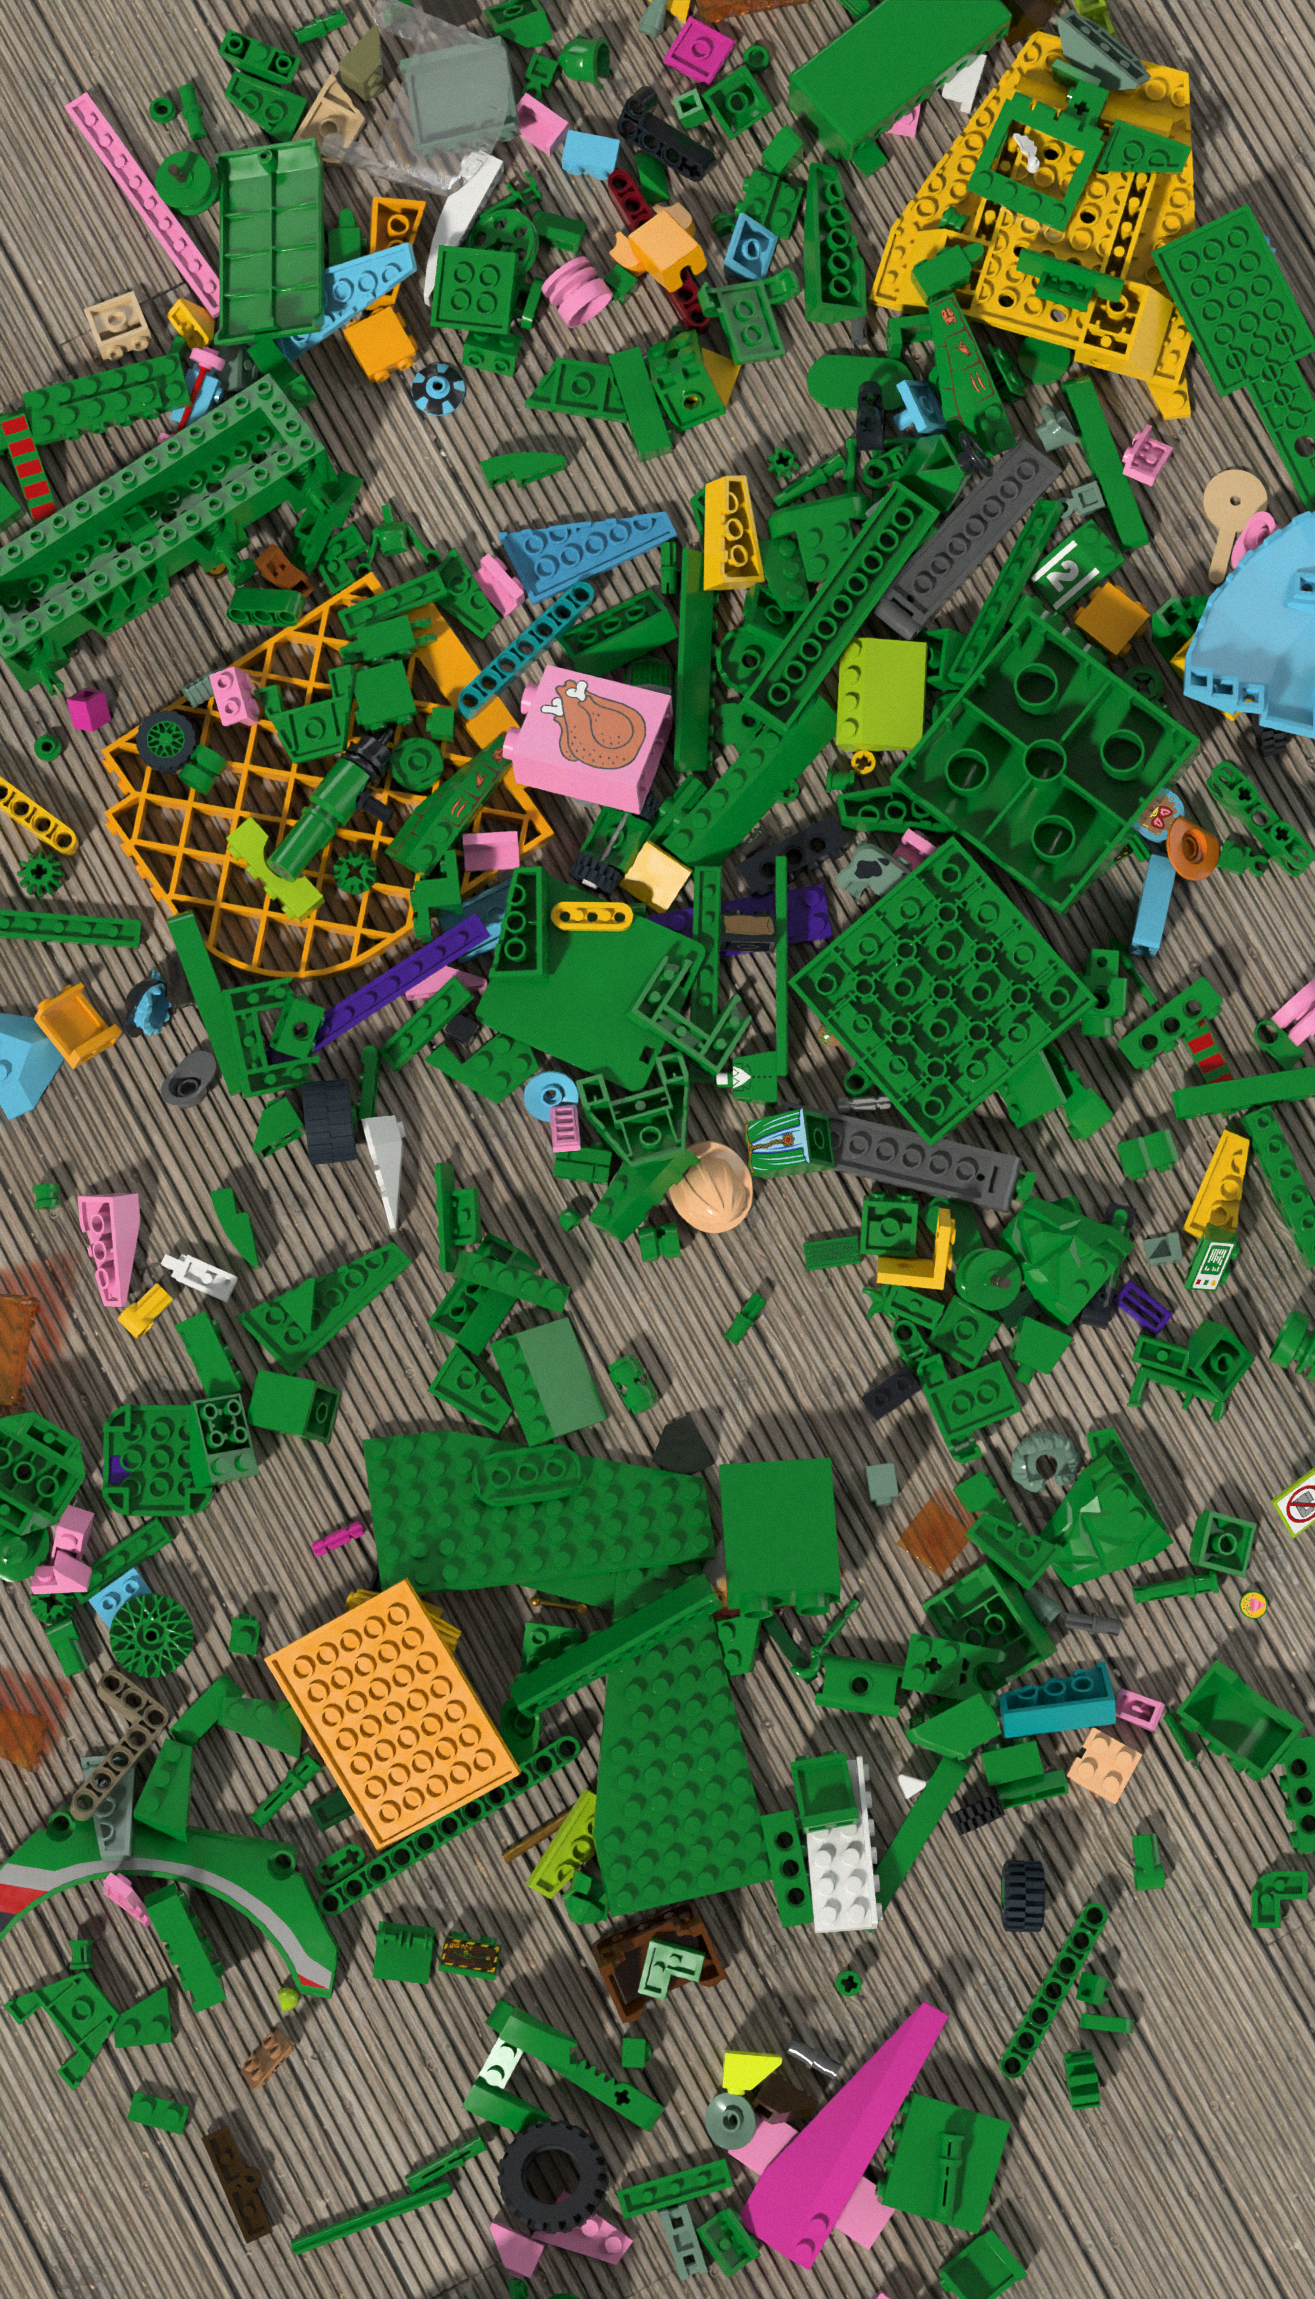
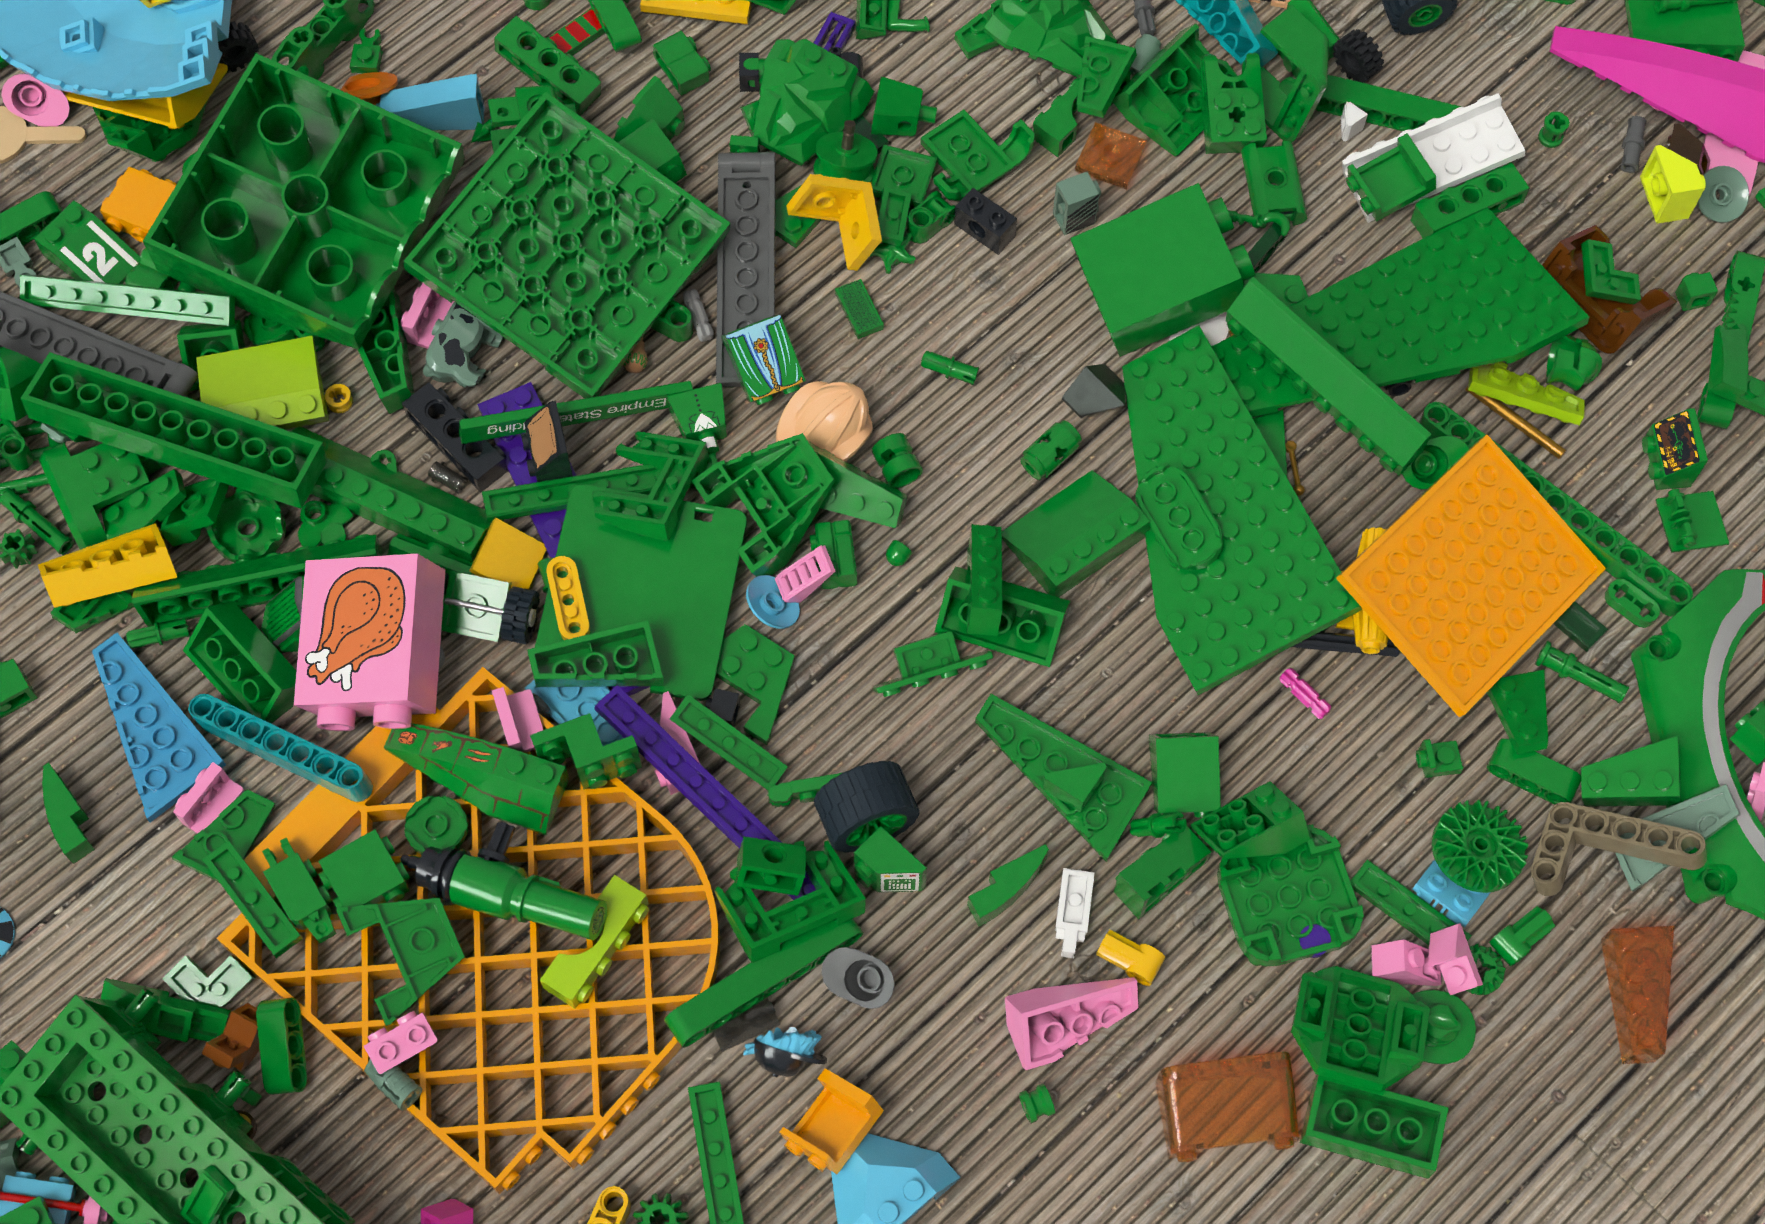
camera: 105 degrees left, 15 degrees down
(166, 741) = (469, 1108): black wheel -> none
(203, 769) = (494, 1053): green wheel -> none
(247, 1366) = (1158, 825): none -> green axle
(355, 885) = (578, 871): green gear -> none
(386, 1150) = (898, 742): white wedge -> none
(393, 540) = (172, 931): green piece -> none
(441, 724) = (384, 806): green plate -> none
(469, 1392) = (1109, 604): green wing -> none
(544, 1642) = (1341, 462): green hinge -> none
(840, 780) = (362, 411): green bush -> none
(889, 1224) = (815, 260): green plate -> none
(1039, 1444) = (1003, 99): sand green piece -> none
(1163, 1250) = (769, 27): sand green panel -> none

